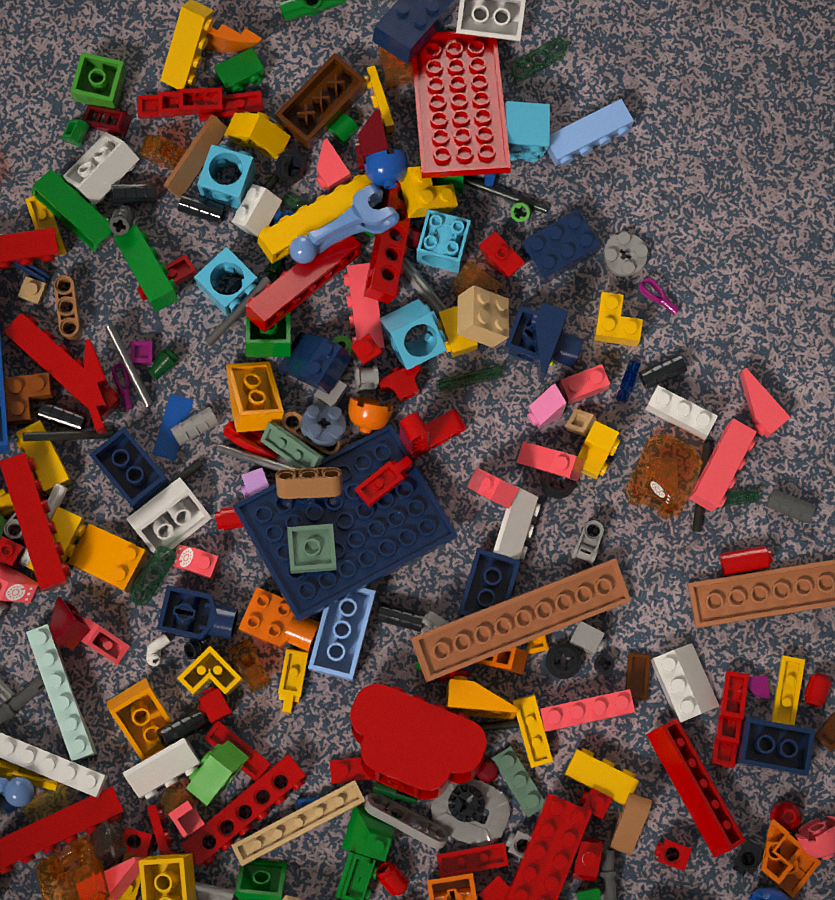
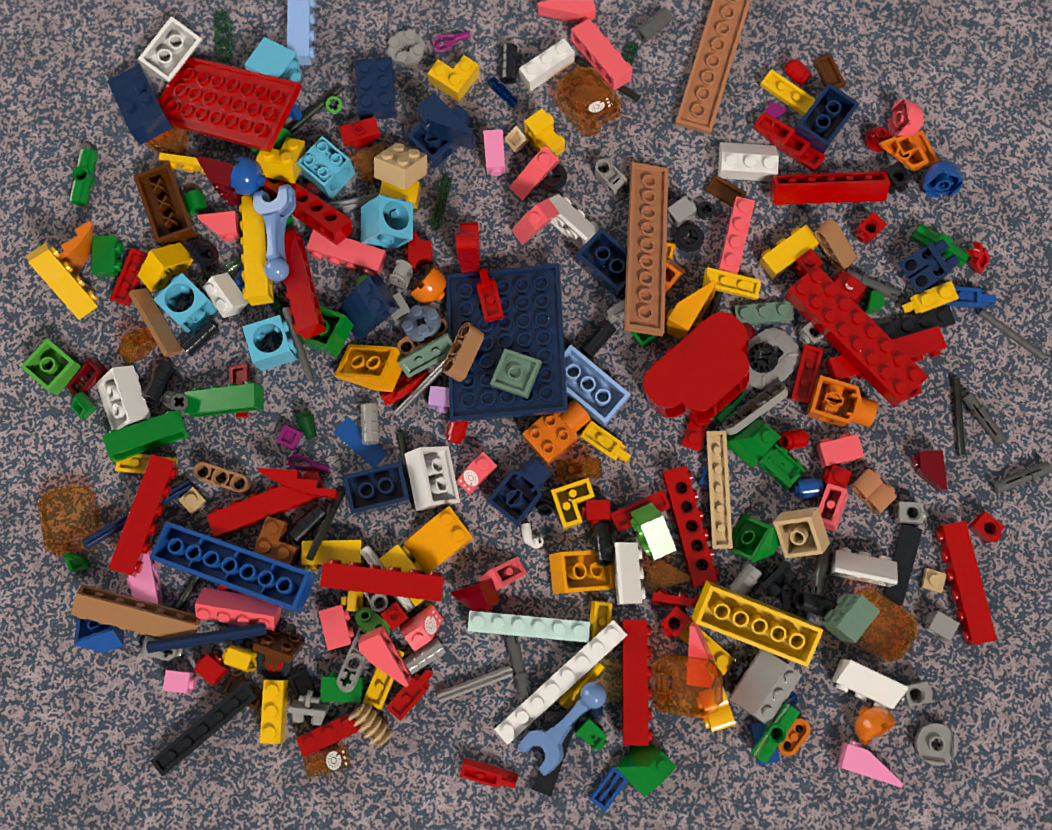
camera: 60 degrees left, 0 degrees up
(105, 762) = (599, 617): none -> yellow hinge
(109, 842) = (666, 642): clear smoke brick -> none
(129, 365) = (294, 451): flat silver bar -> none
(161, 574) = (478, 512): clear green beam -> none
(180, 103) = (106, 312): red slope -> none
(186, 819) = (677, 572): coral panel -> none
(366, 350) = (381, 261): red brick -> none
(584, 384) = (489, 117): coral brick -> none
(745, 560) = (678, 75): red brick -> none

